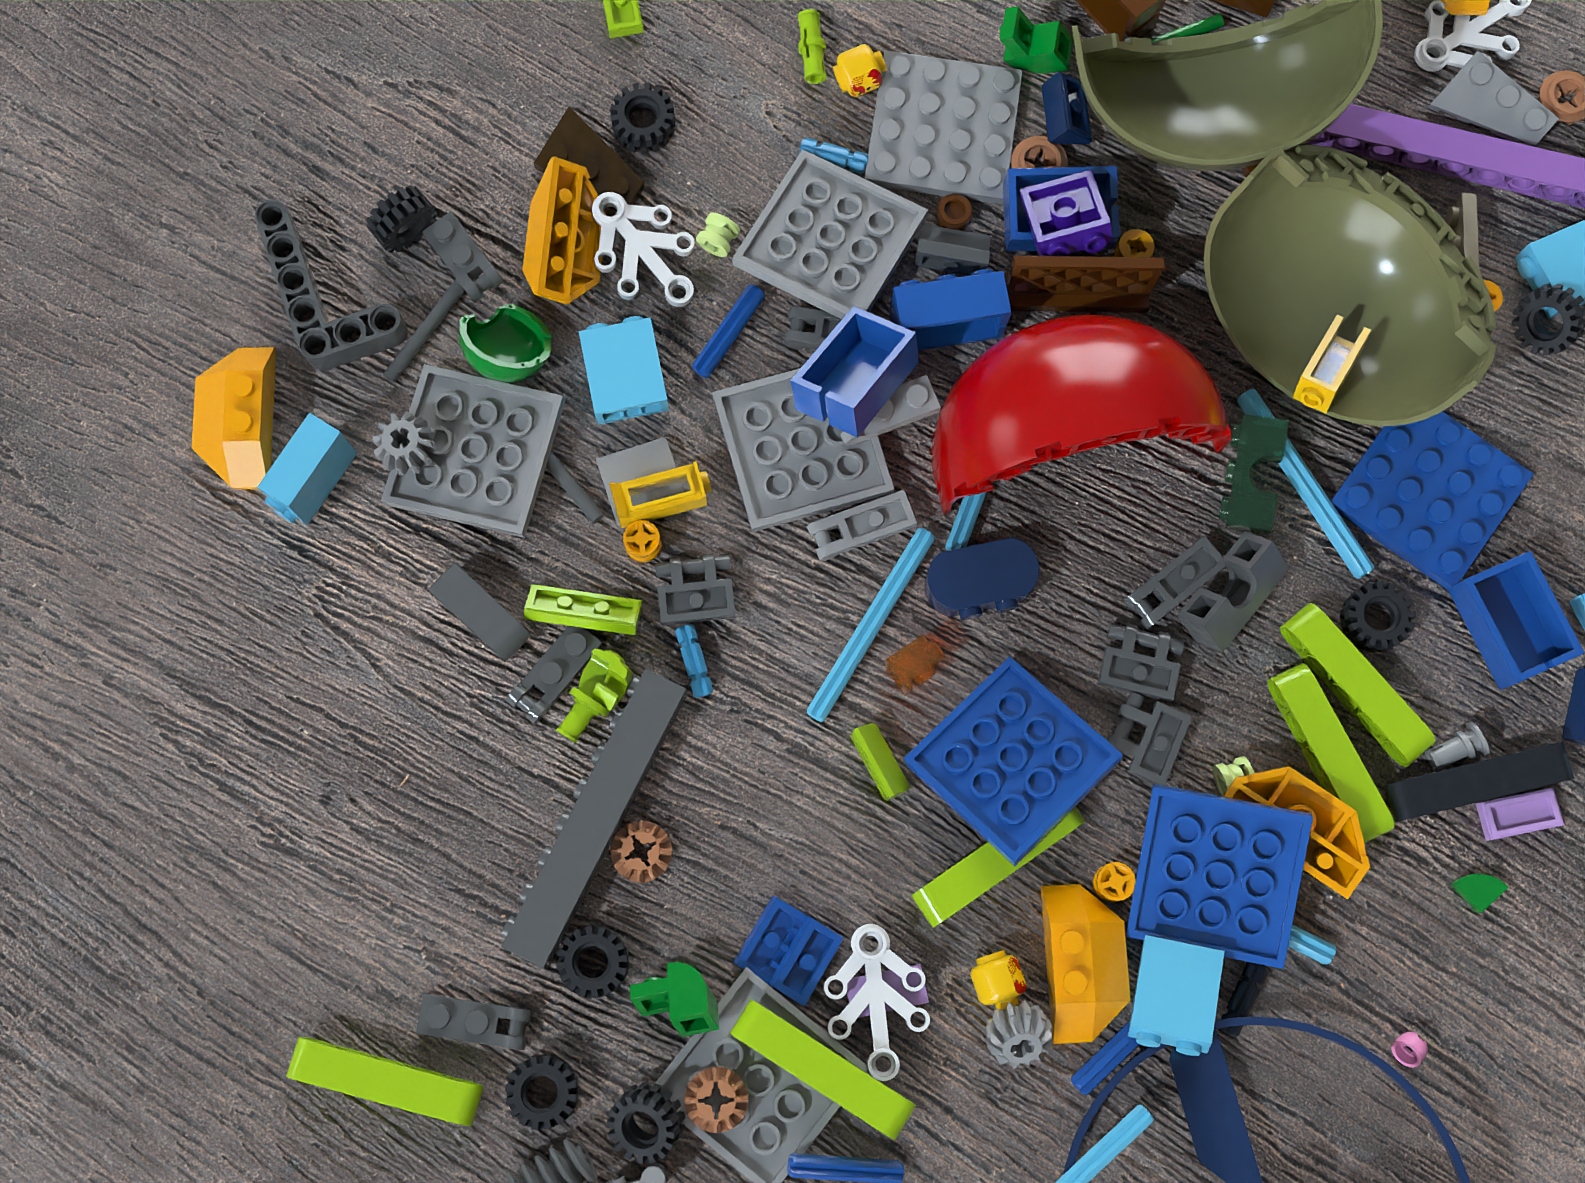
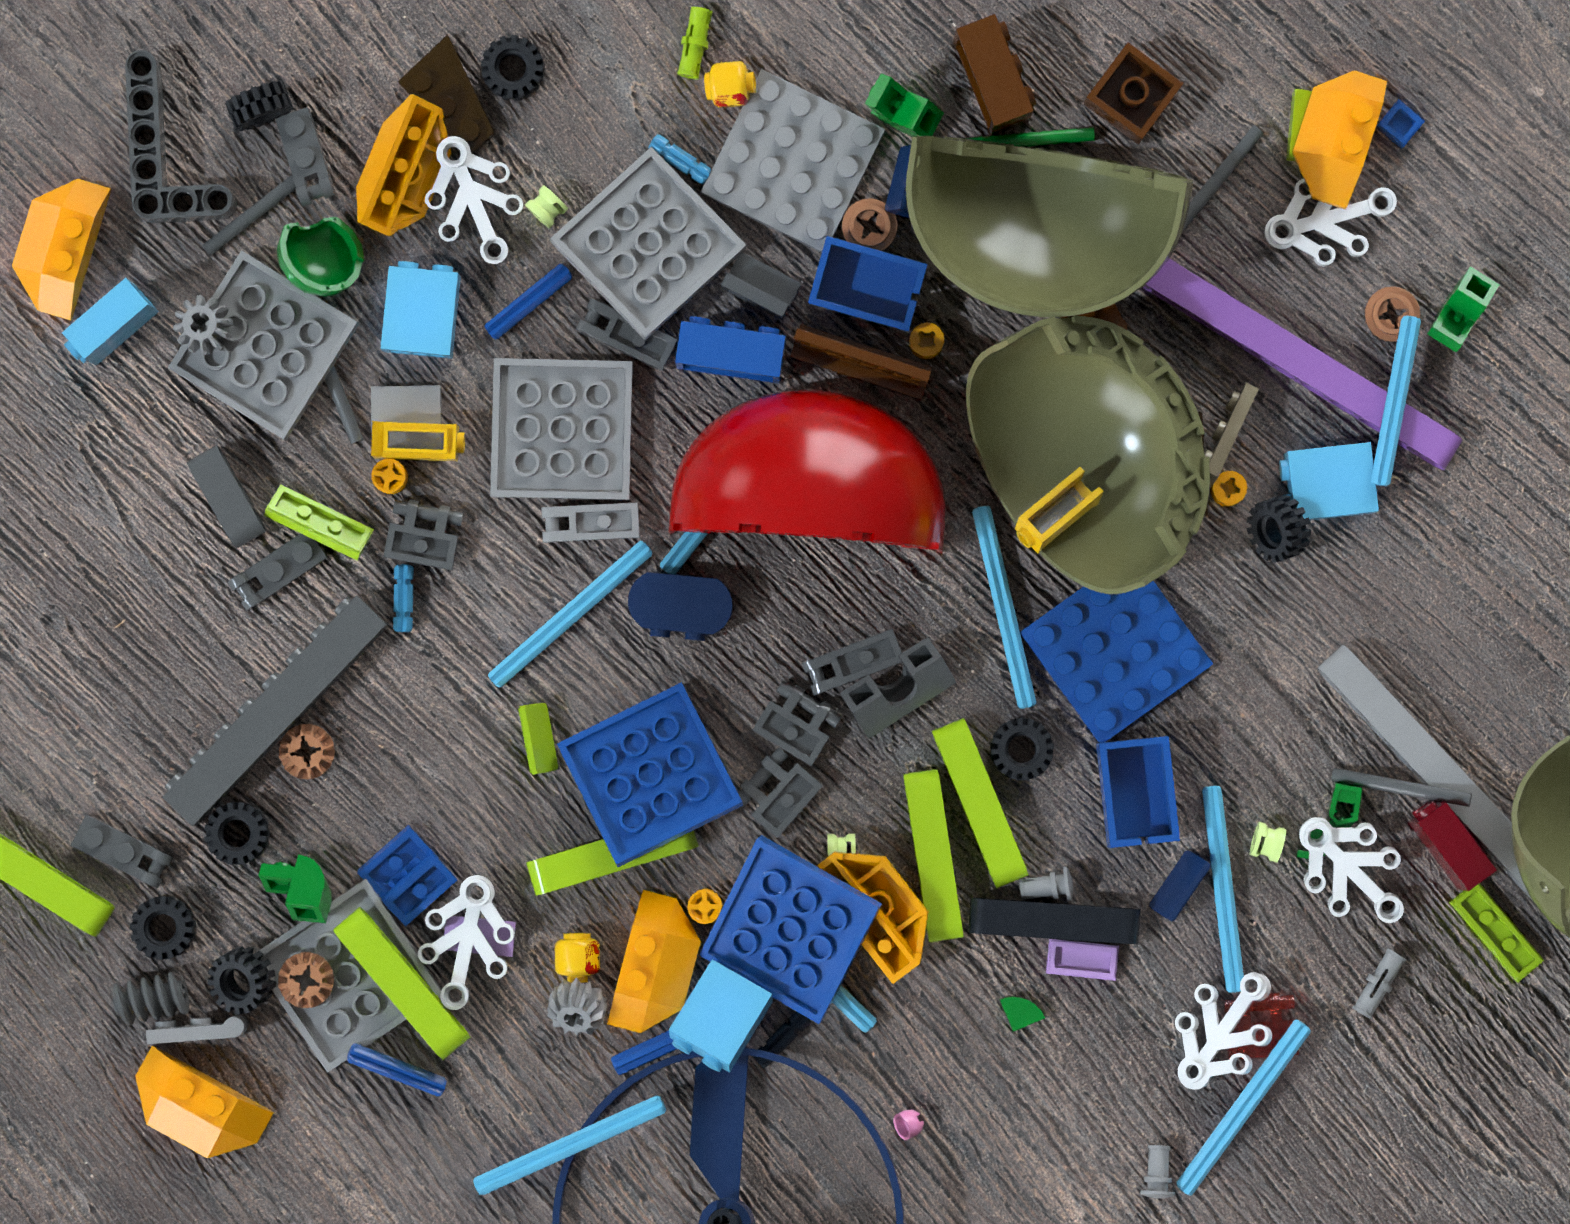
camera: 20 degrees right, 10 degrees up
(599, 691) = (311, 601): lime piece -> none
(855, 371) = (622, 387): blue piece -> none
(907, 404) = (645, 426): light grey plate -> none
(914, 663) = (595, 662): clear orange brick -> none
(954, 212) = (774, 249): reddish brown tile -> none
(1067, 215) = (860, 301): dark purple plate -> none
(1256, 441) = (938, 612): clear green arch -> none
(1495, 102) = (1319, 299): light grey wing -> none

